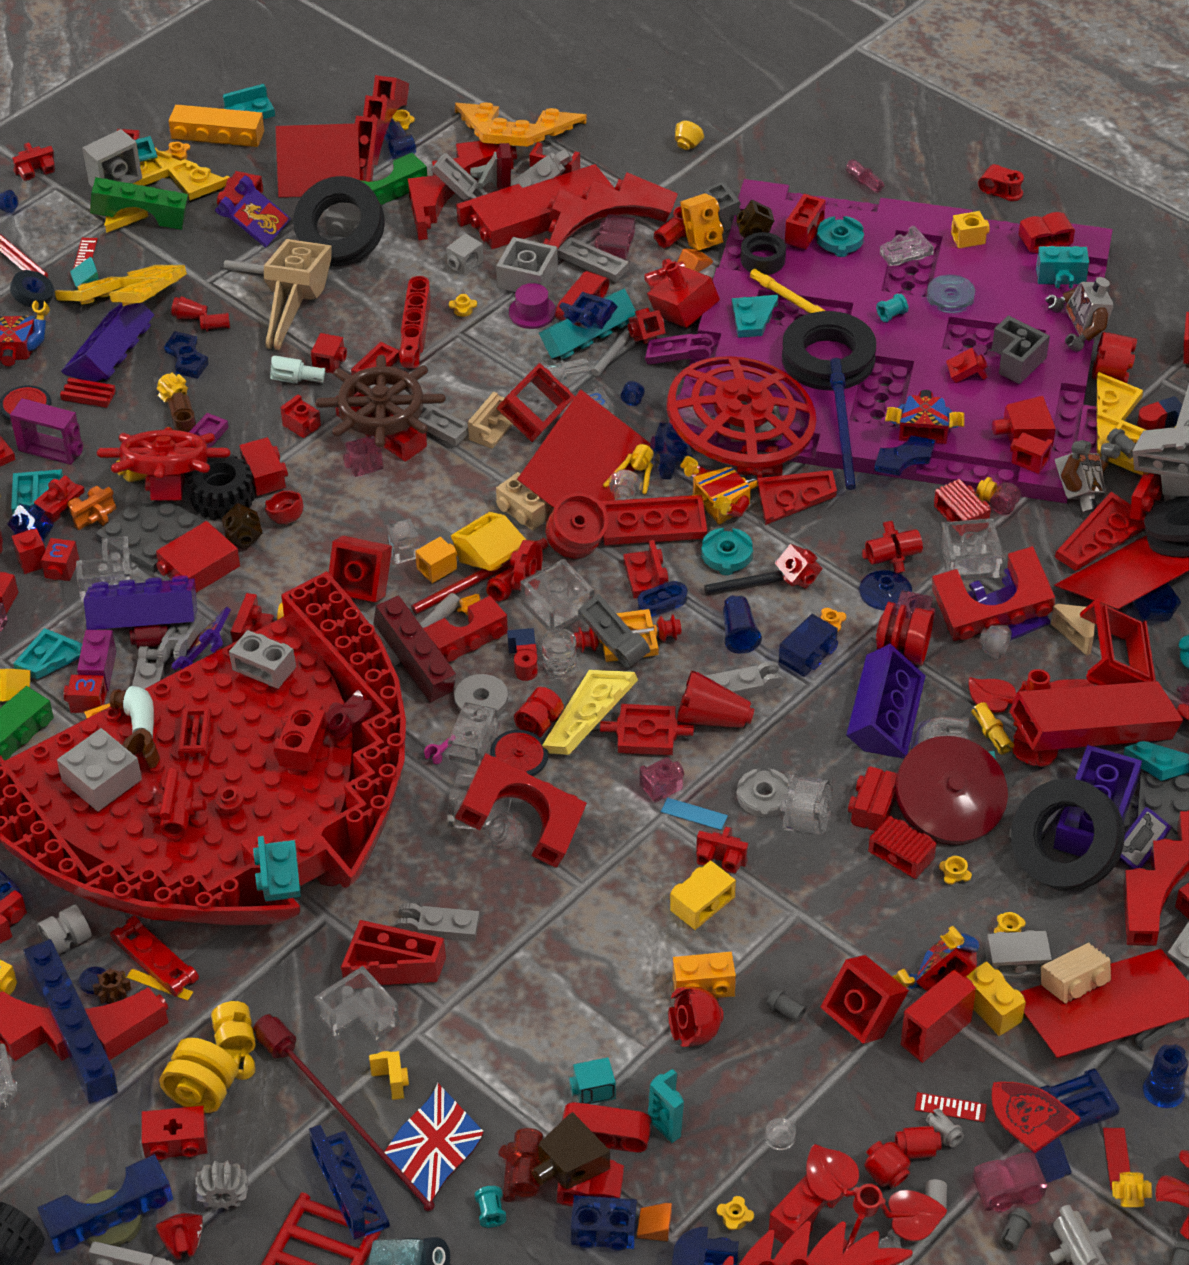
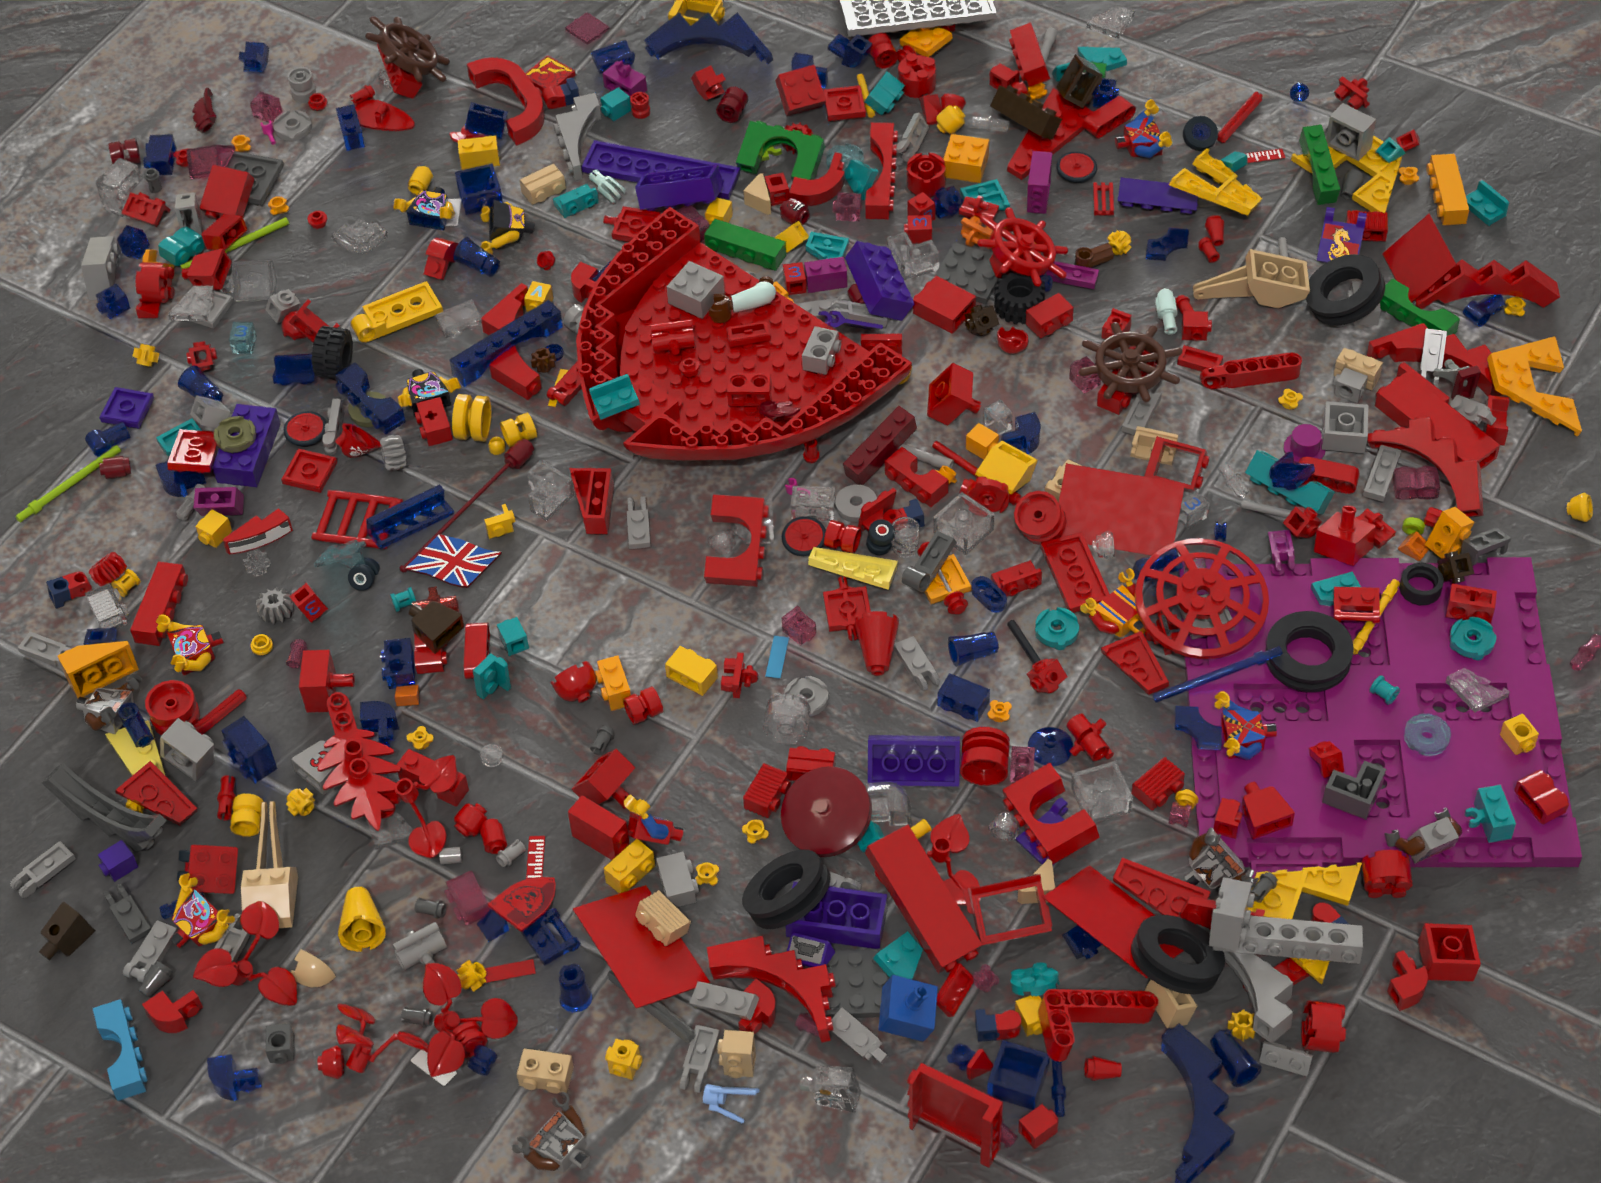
camera: 80 degrees right, 5 degrees up
(115, 1131) = (427, 387): none -> torso
(297, 354) = (1183, 304): none -> red pin
(434, 520) = (1026, 433): none -> clear blue brick
(435, 243) = (1361, 364): none -> tan brick
(521, 675) = (879, 530): none -> plate
(639, 460) = (1140, 549): yellow plant -> none
(673, 251) = (1412, 525): none -> lime tile
(748, 950) = (643, 705): none -> red wheel
(776, 297) = (1357, 600): none -> red plate

